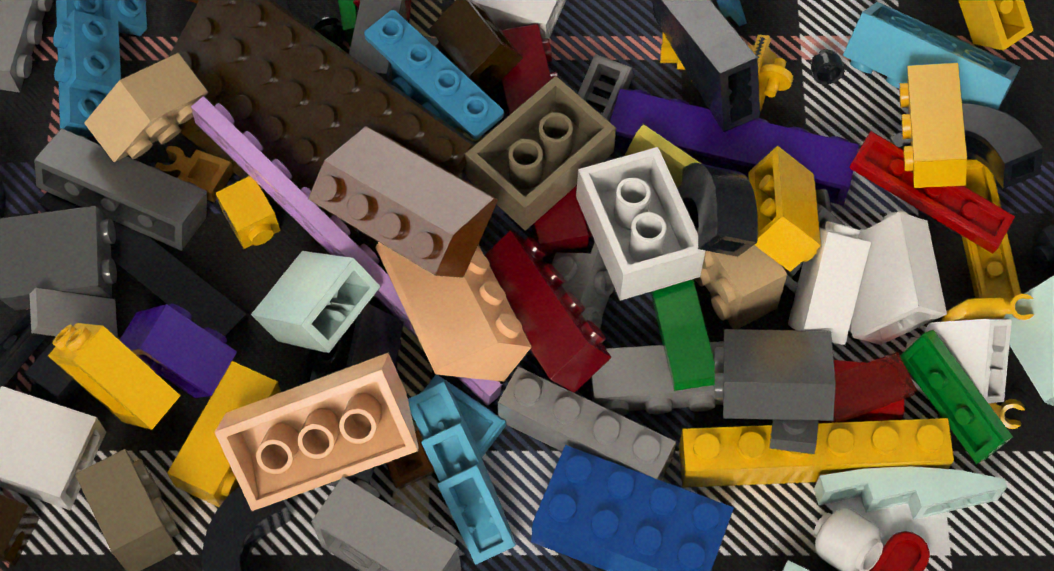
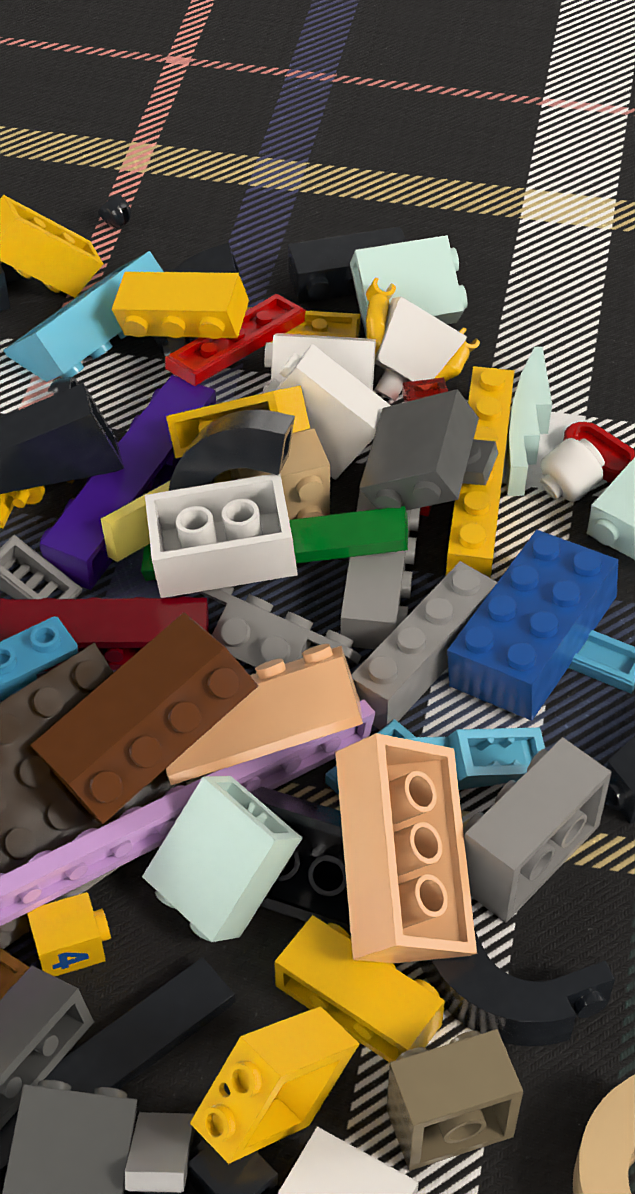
camera: 80 degrees left, 15 degrees down
(179, 348) = (234, 1006): dark purple brick -> none
(538, 150) = (106, 593): dark tan brick -> none
(549, 316) = (341, 617): dark red brick -> none
(955, 396) = (454, 355): green tile -> none

